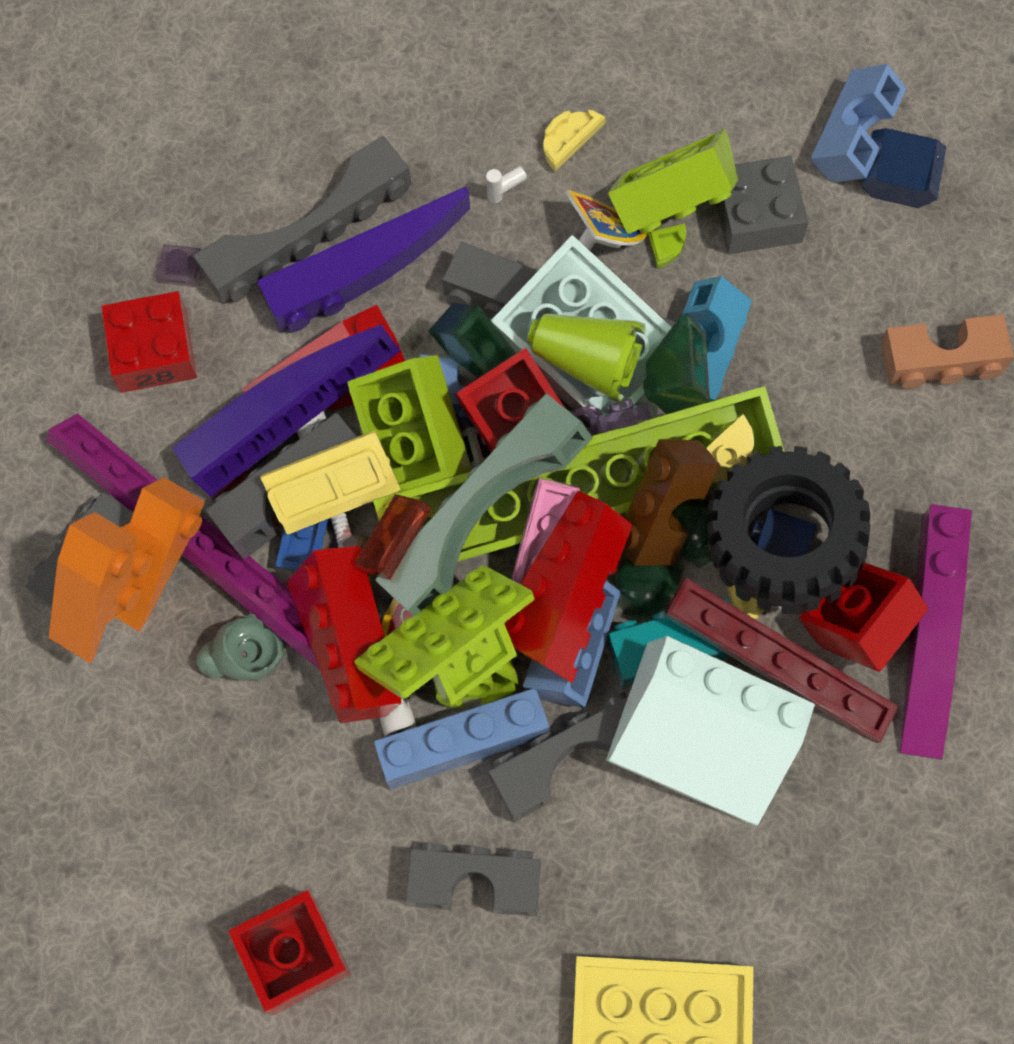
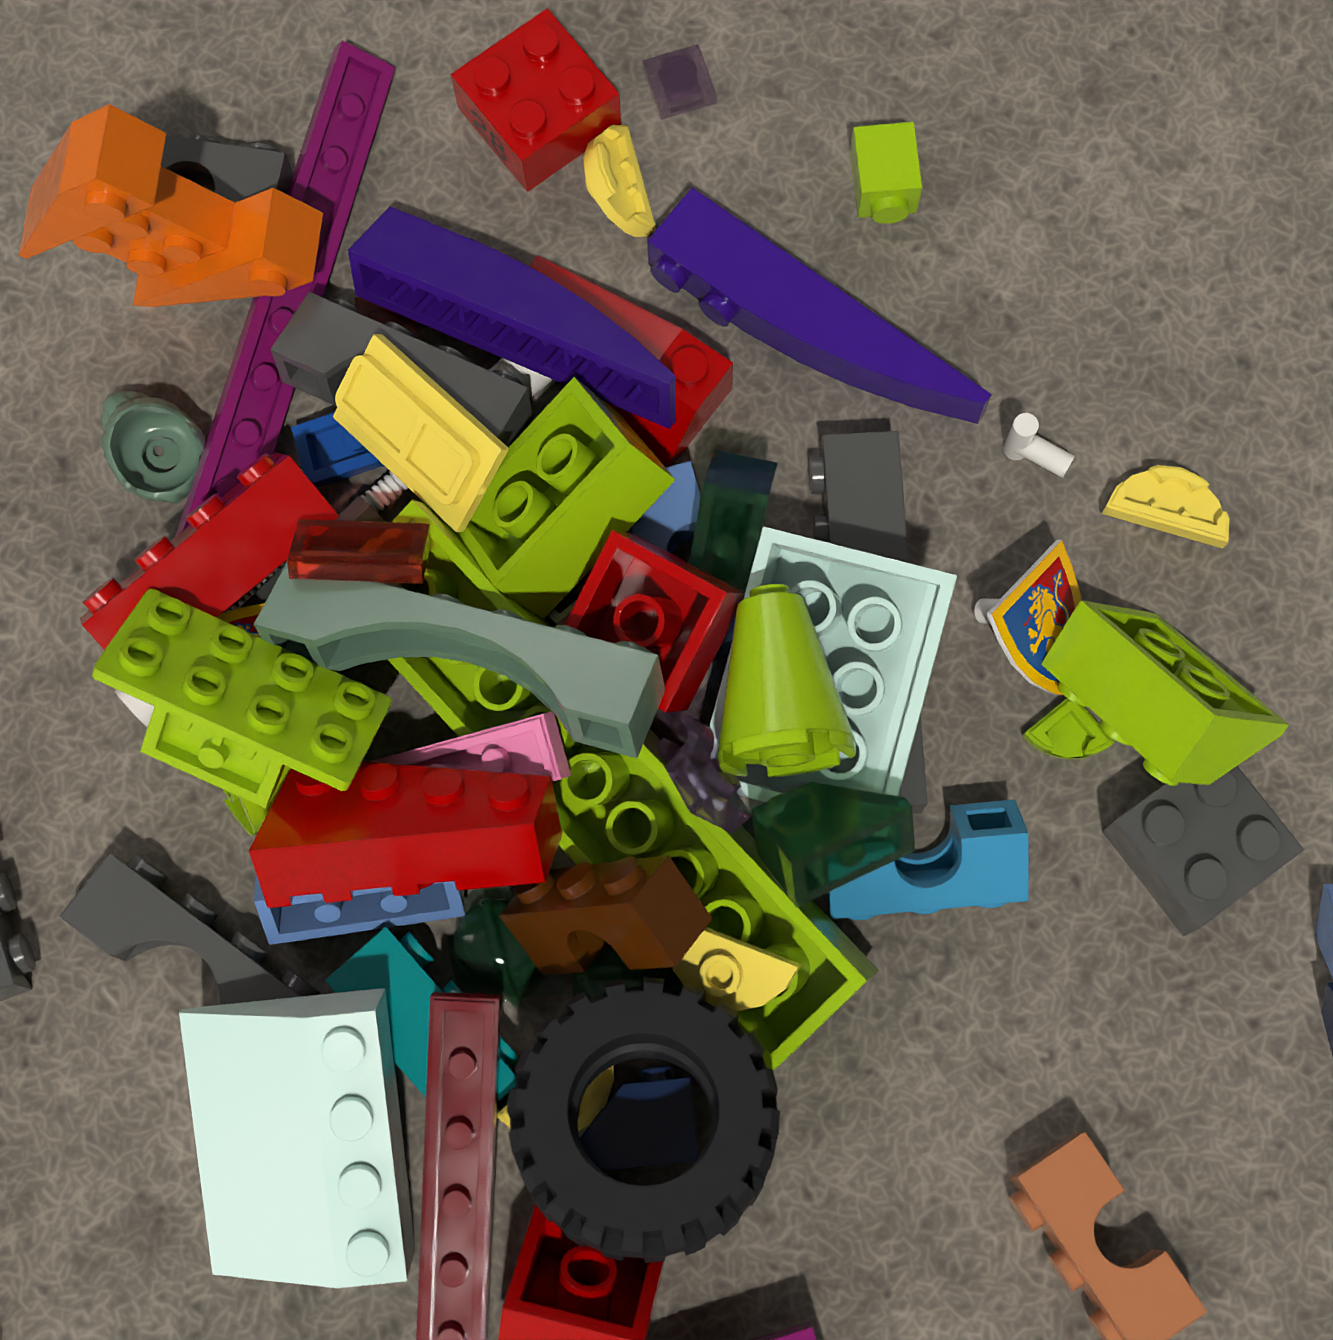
camera: 65 degrees right, 5 degrees up
(223, 324) = (617, 182): none -> light yellow plate
(237, 262) = (937, 259): dark grey arch -> none
(301, 182) = (885, 171): none -> lime brick
(461, 738) = (148, 796): medium blue brick -> none

